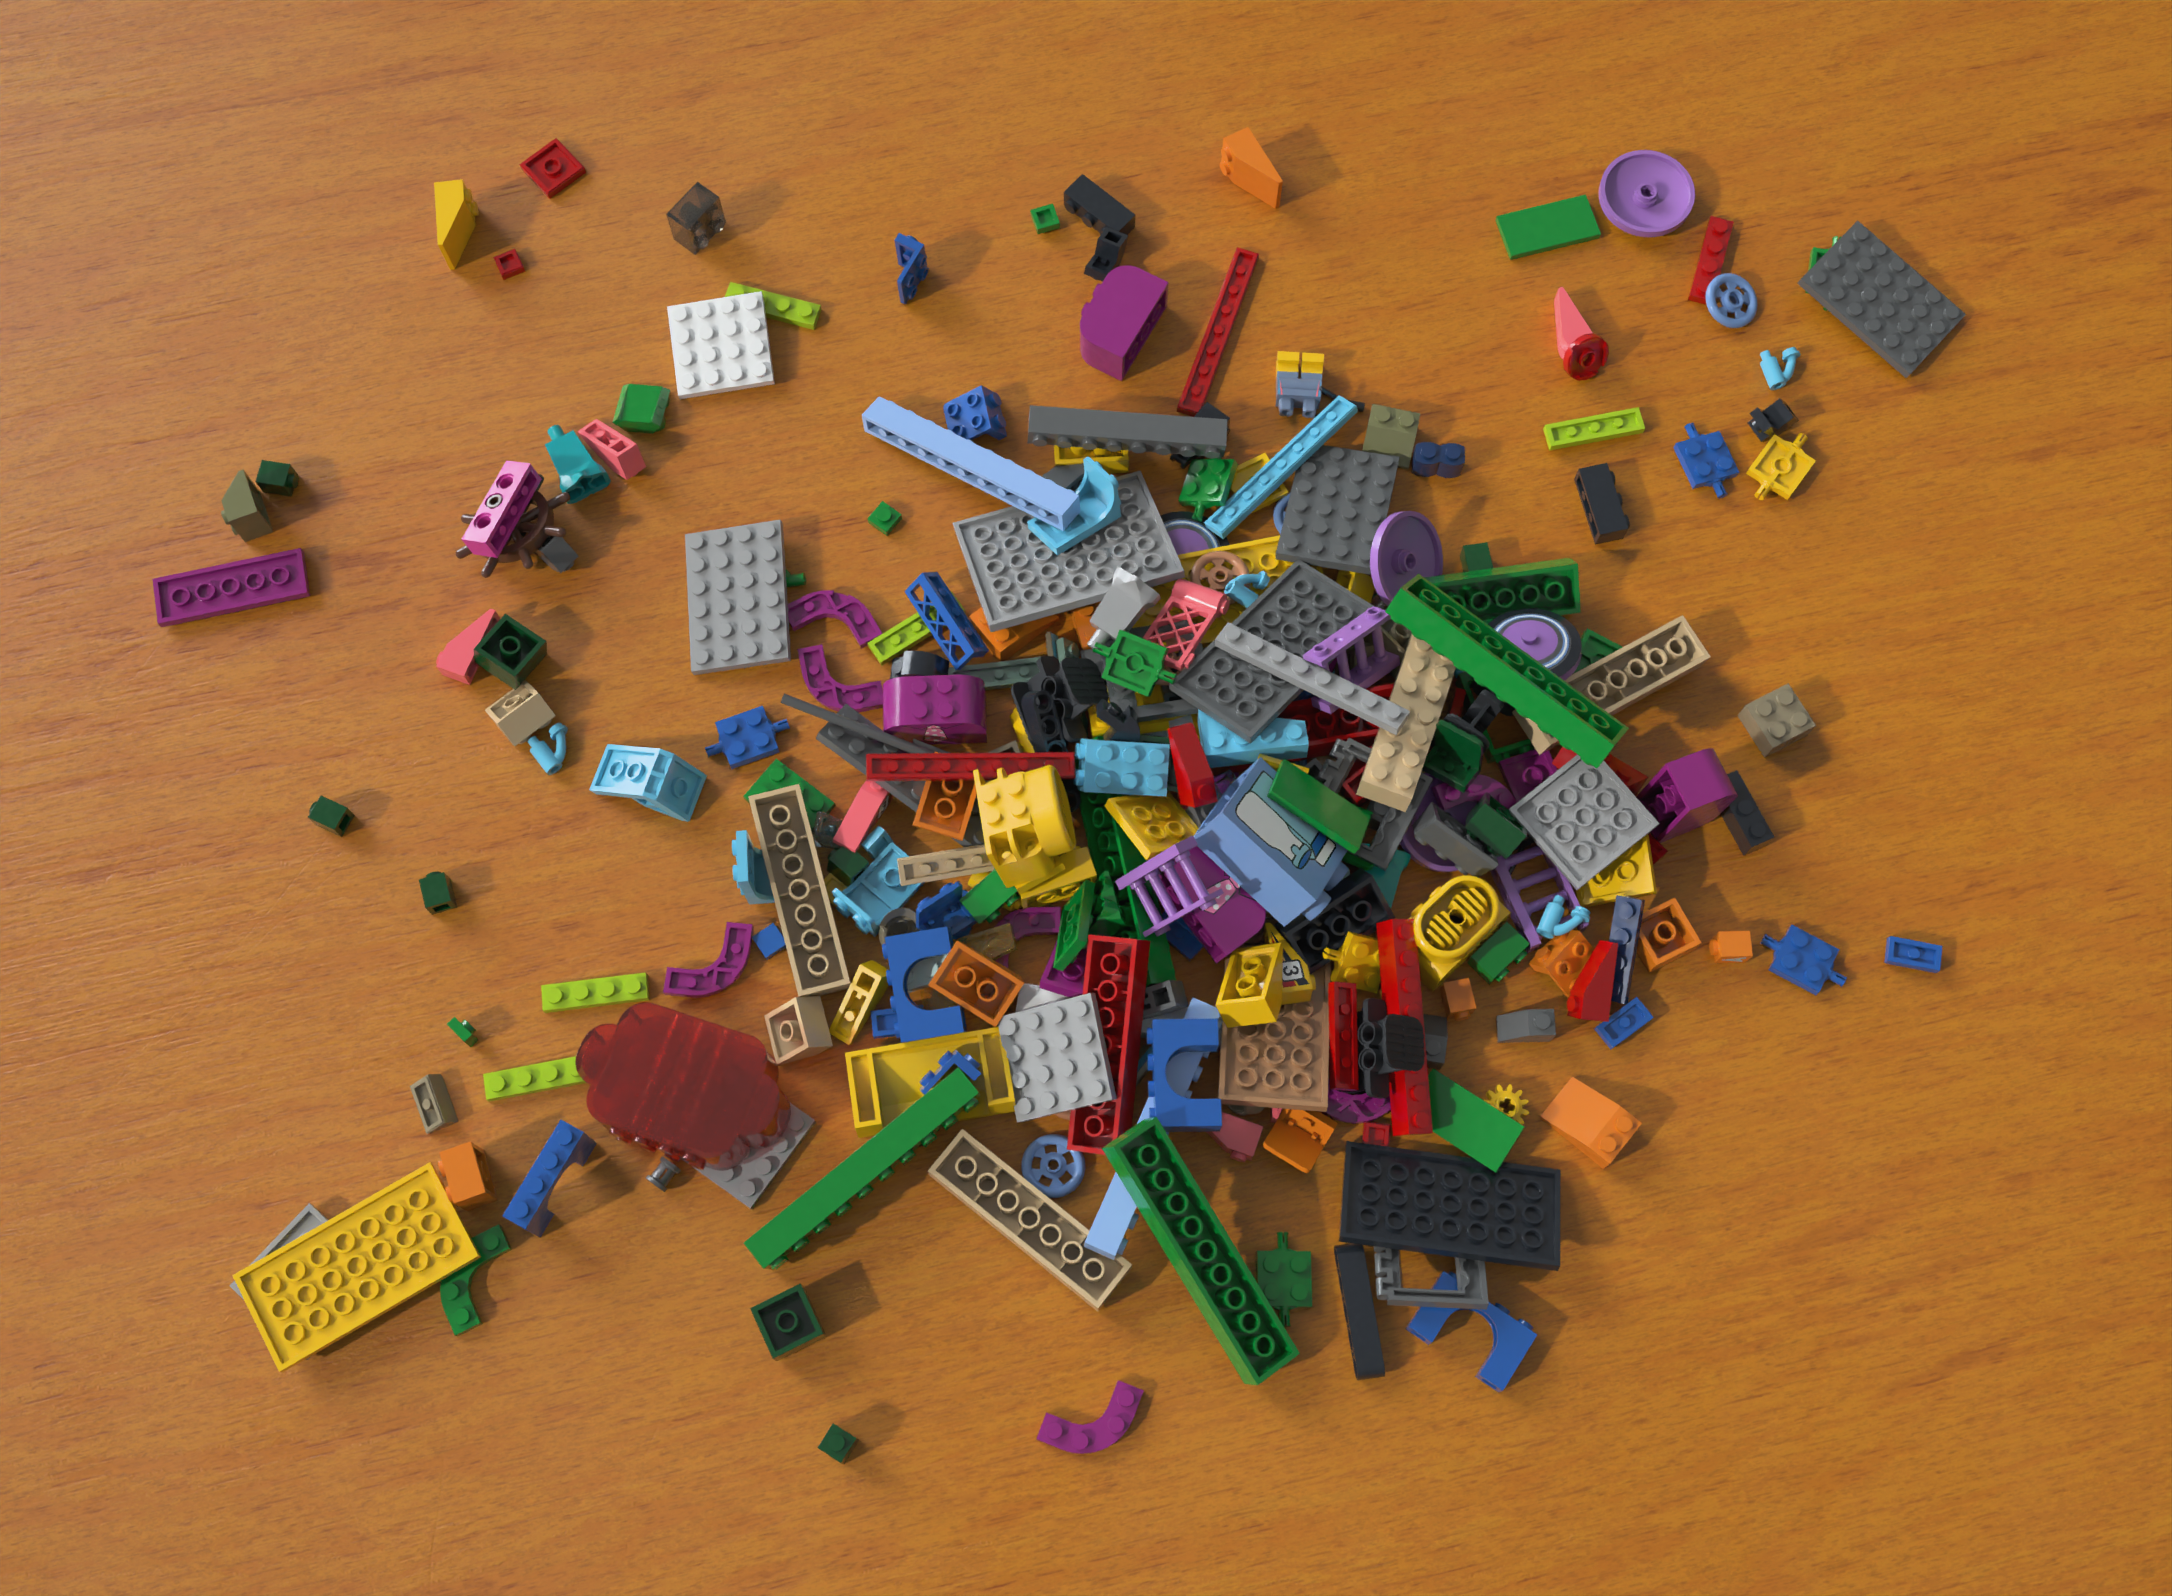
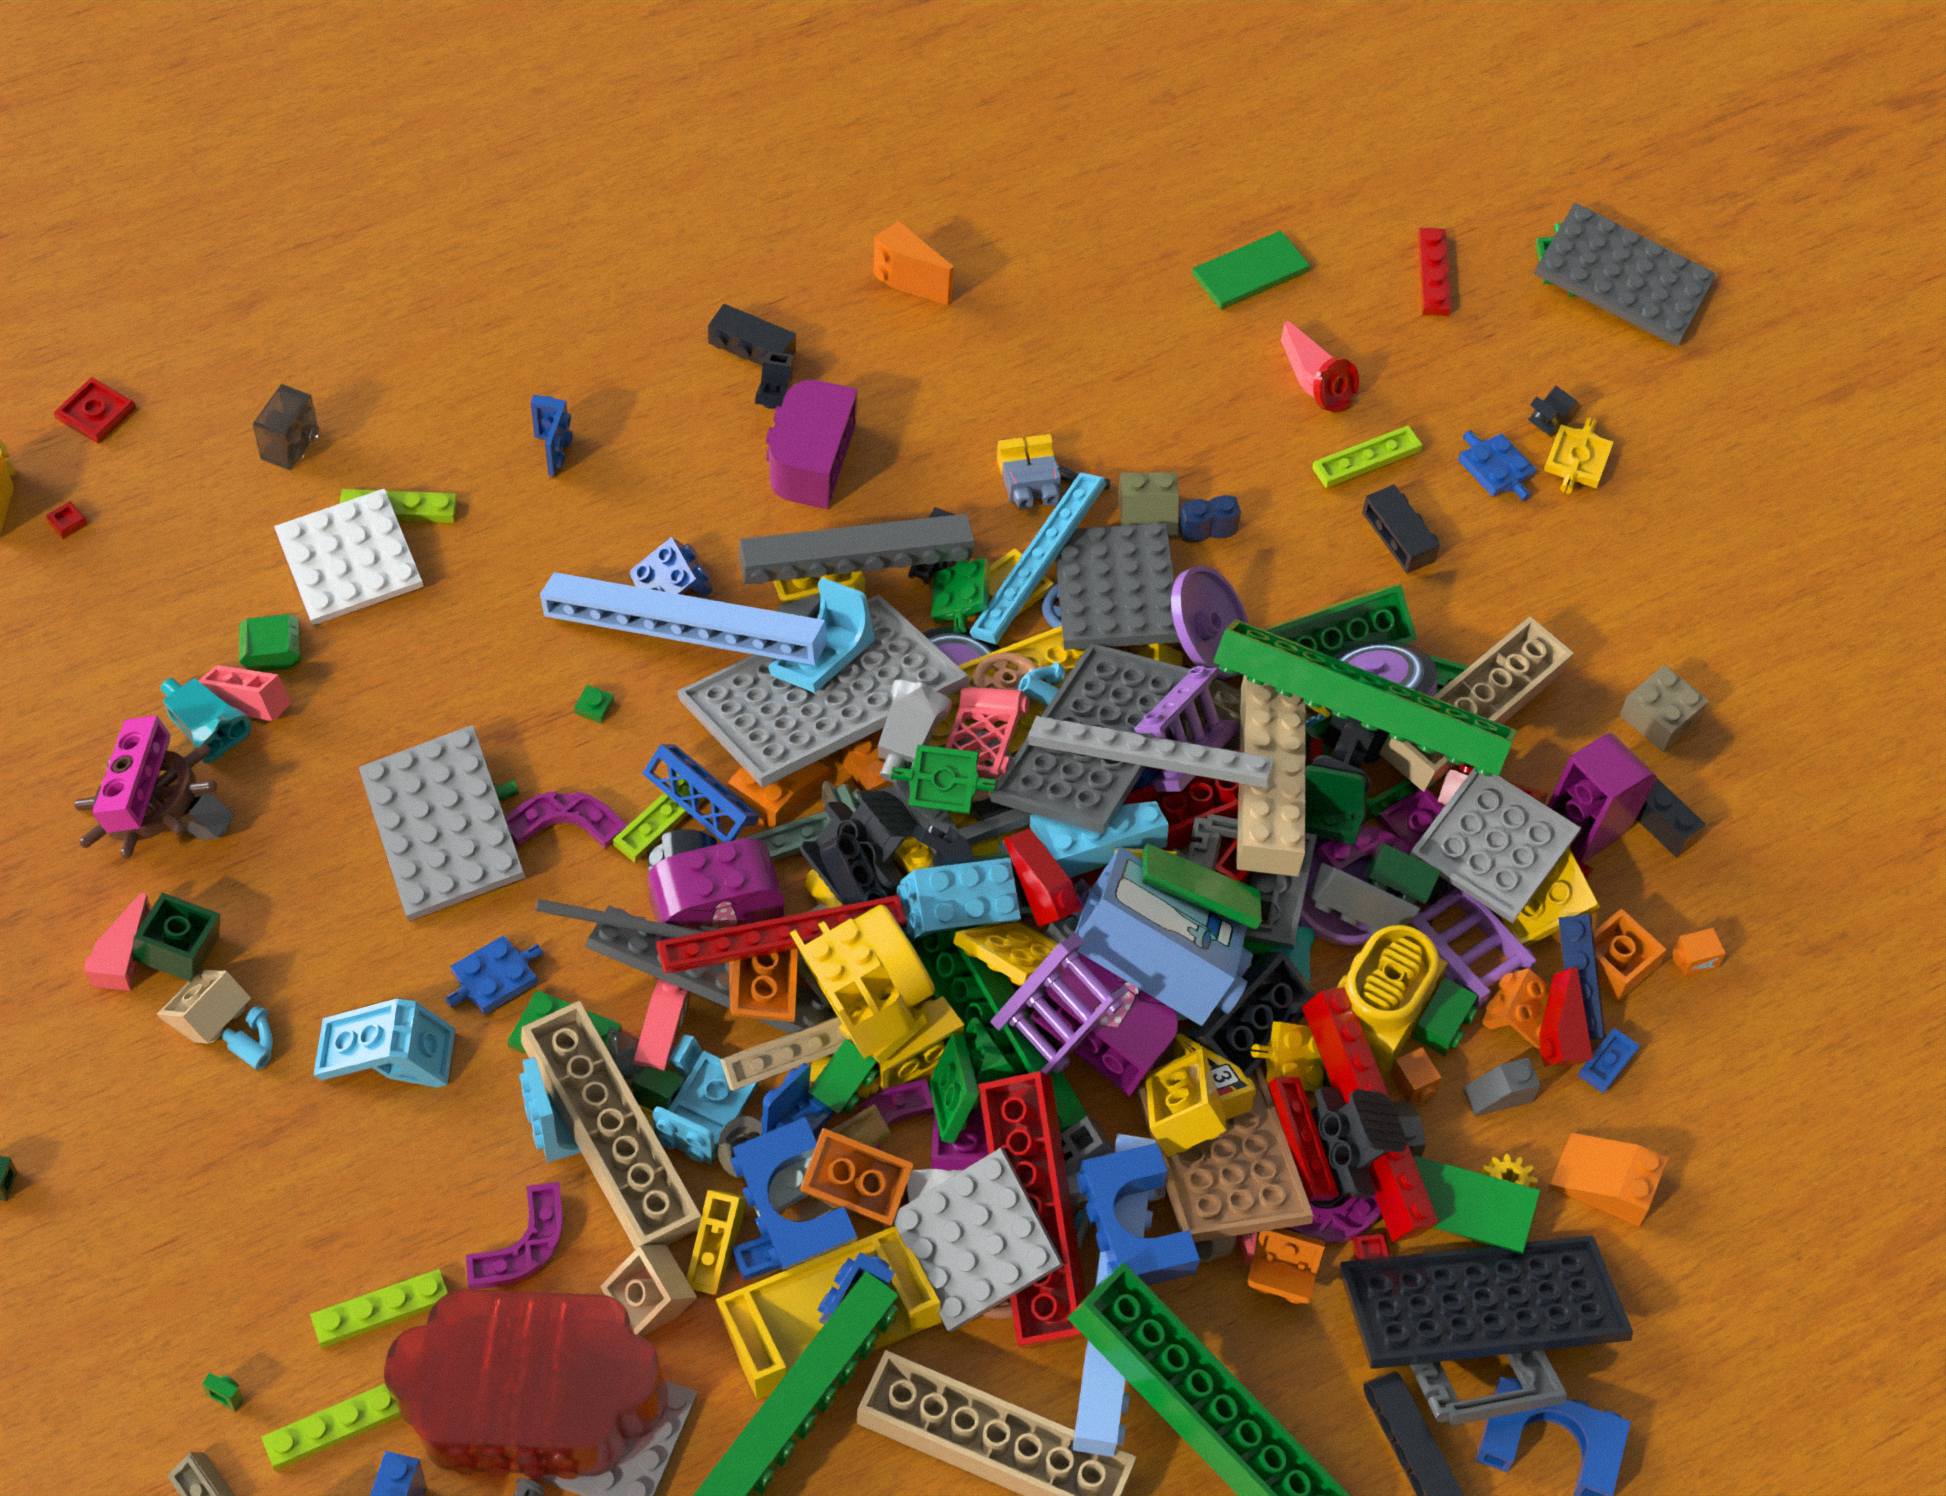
camera: 20 degrees left, 15 degrees down
(437, 892) = (150, 1235): dark green brick -> none
(769, 941) = (584, 1198): blue tile -> none
(834, 694) = (562, 888): magenta plate -> none
(1045, 218) = (692, 358): green plate -> none
(1075, 1169) = (1008, 1349): medium blue plate -> none
(1182, 938) = (1085, 1082): blue plate -> none
(1218, 332) = (922, 435): red tile -> none
(1237, 1137) = (1211, 1290): coral slope -> none
(1285, 1278) = (1320, 1430): green plate -> none
(1475, 557) = (1282, 607): dark green brick -> none
(1550, 920) = (1493, 967): medium azure plant -> none
(1646, 193) = (1346, 216): medium lavender dish -> none
(1731, 295) = (1470, 304): medium blue plate -> none
(1774, 376) = (1536, 365): medium azure plant -> none
(1803, 959) = (1780, 949): blue plate -> none
(1913, 954) = (1894, 917): blue plate -> none

